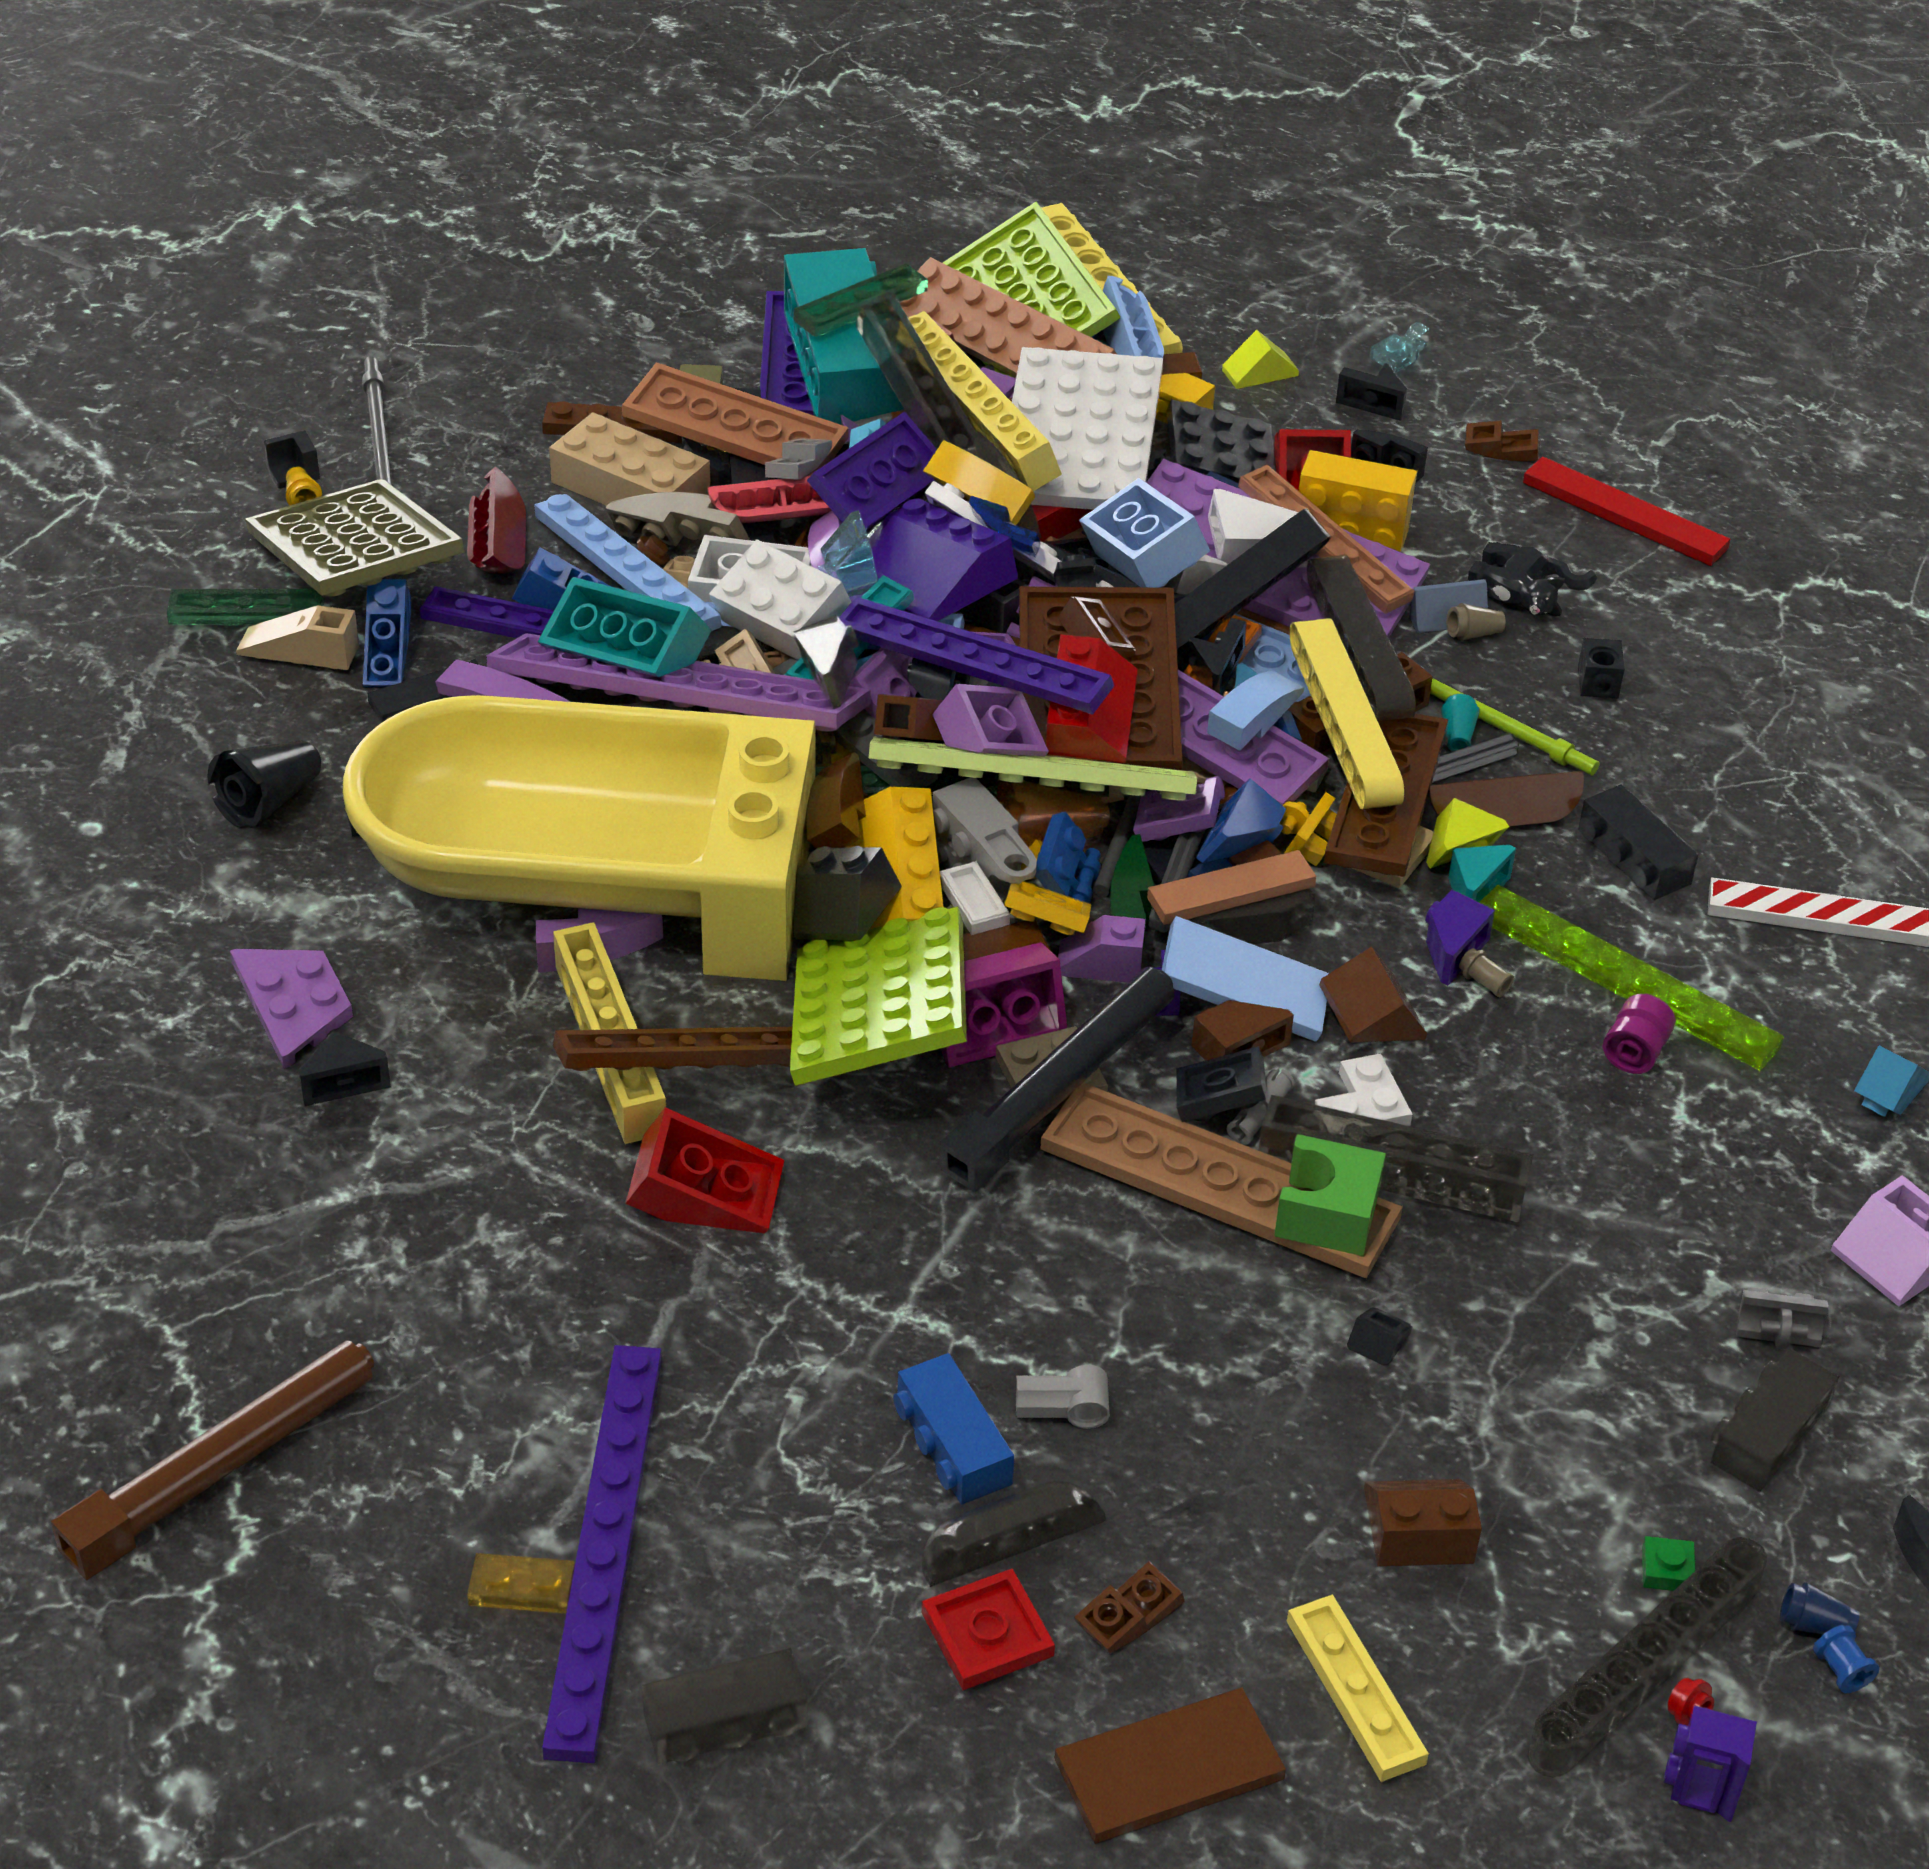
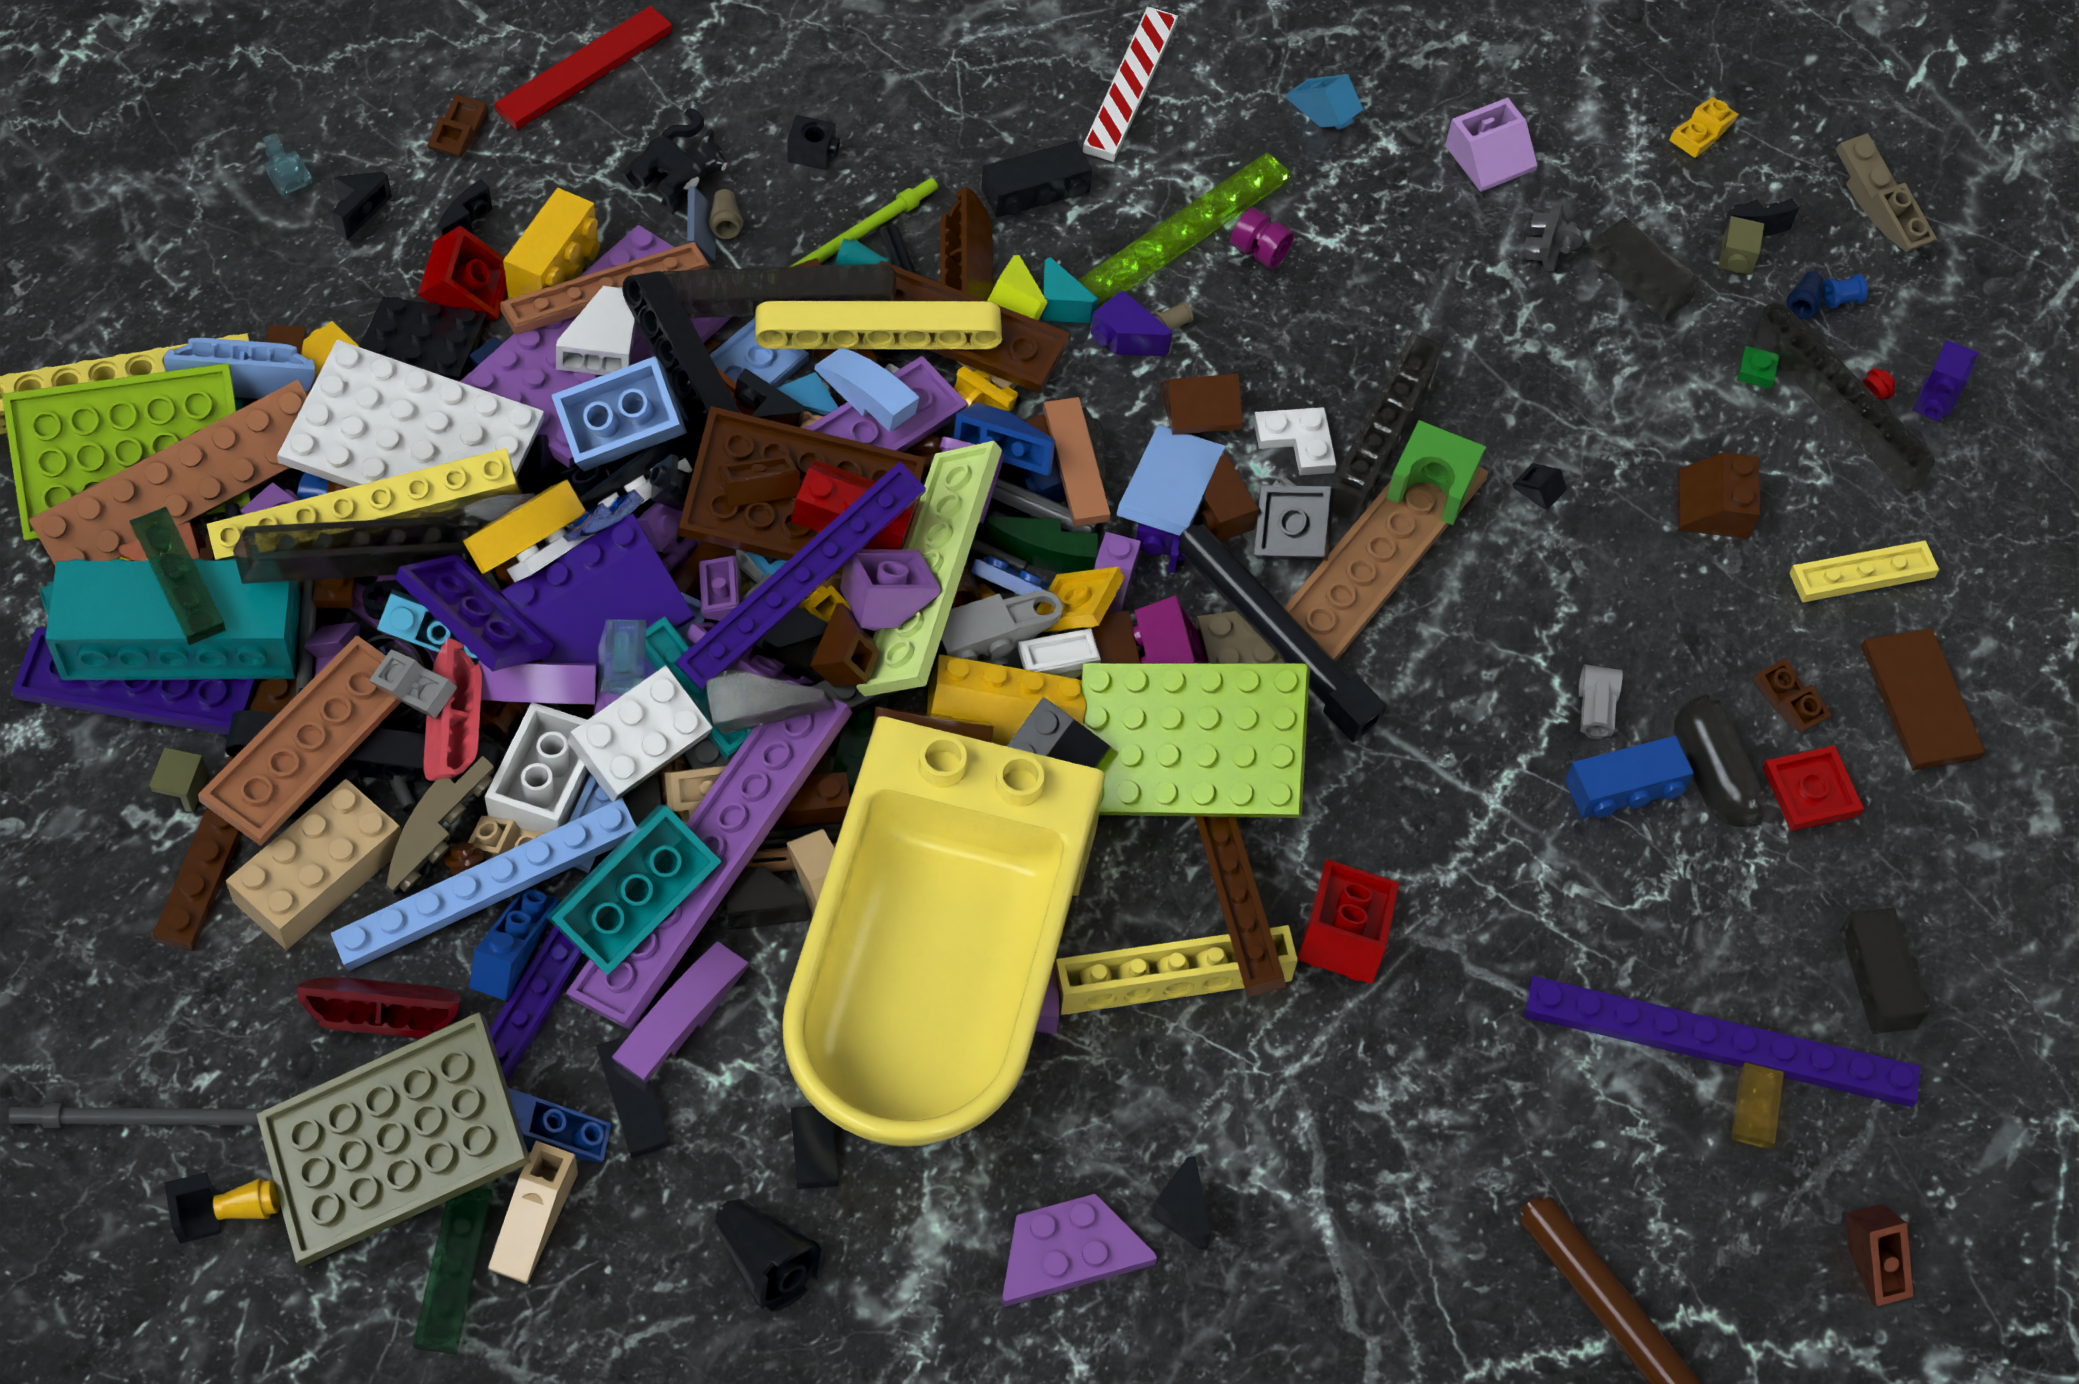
camera: 85 degrees left, 15 degrees up
(324, 1700) = (1881, 1253): none -> copper slope
(1258, 363) = (277, 287): neon yellow slope -> none
(1867, 1528) = (1741, 245): none -> olive brick

